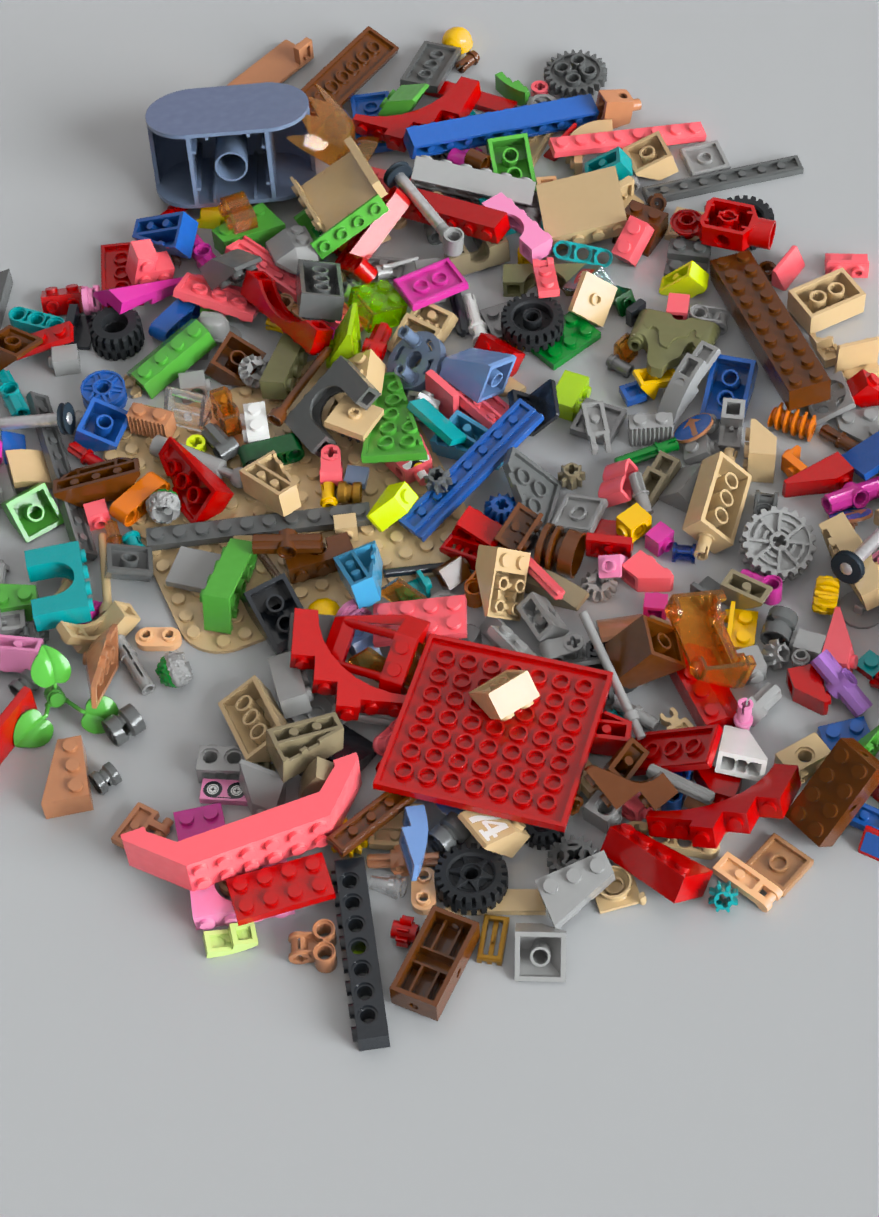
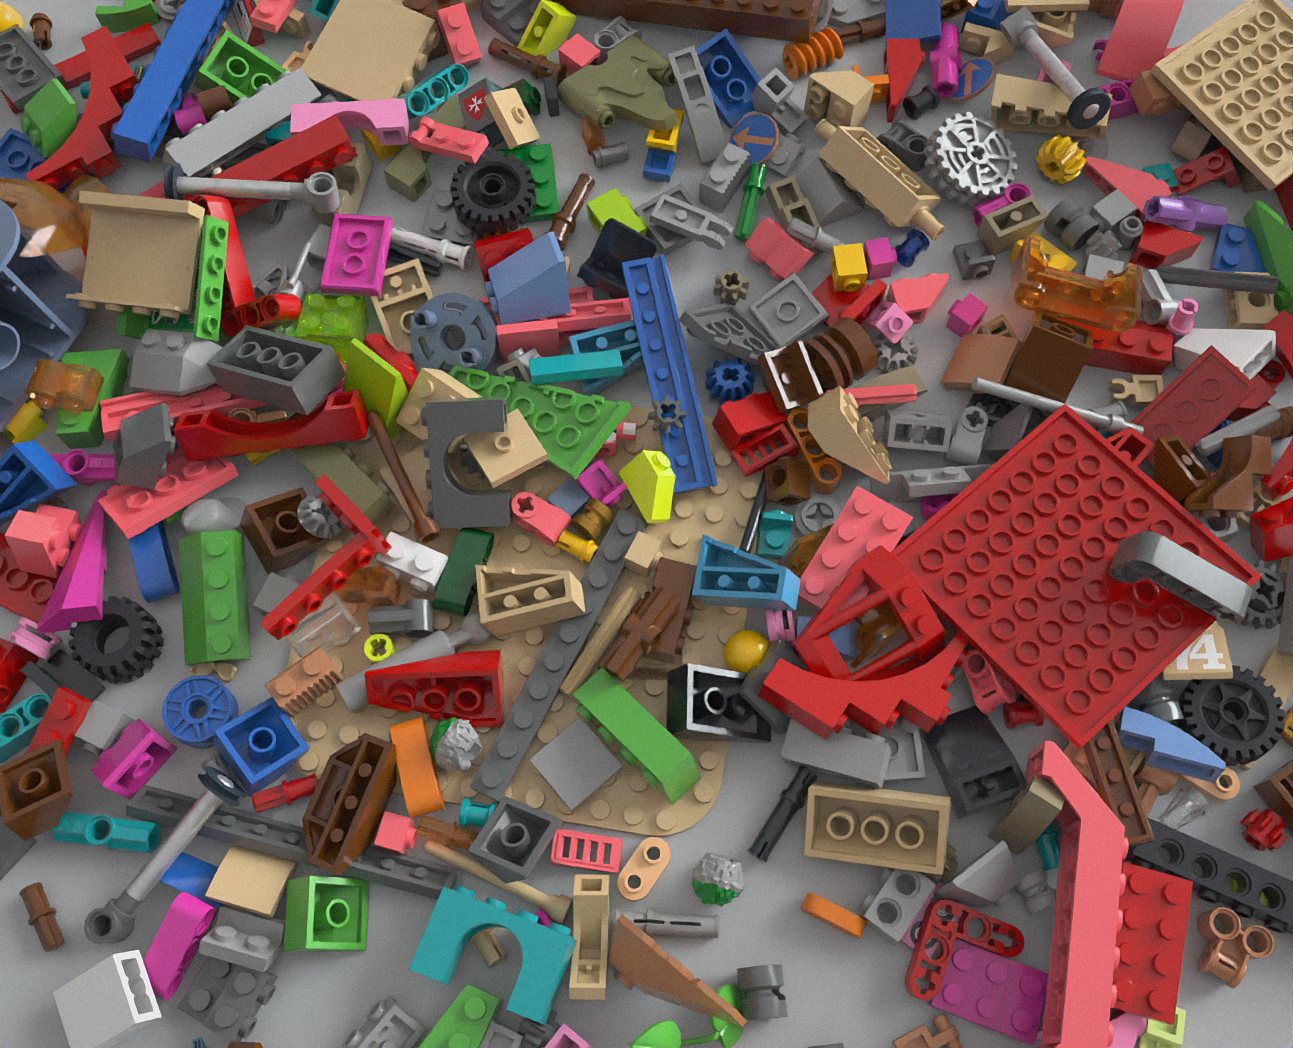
camera: 60 degrees left, 15 degrees up
(57, 381) = (133, 759): none -> dark pink slope
(144, 592) = (575, 837): none -> coral slope
(192, 737) = (833, 915): none -> orange beam
(219, 794) = (946, 934): none -> red beam
(230, 684) = (789, 803): none -> black pin
(245, 384) = (336, 570): none -> red bracket
(300, 742) = (980, 799): dark tan wedge -> none
(375, 482) = (600, 483): none -> dark pink bracket
(505, 694) = (1043, 527): slope -> none
(521, 774) = (1181, 573): none -> dark grey beam
(548, 370) = (564, 221): none -> reddish brown pin
(654, 293) = (536, 65): none -> reddish brown pin
(799, 724) = (1218, 279): none -> dark grey axle
(808, 500) = (921, 102): none -> black bush

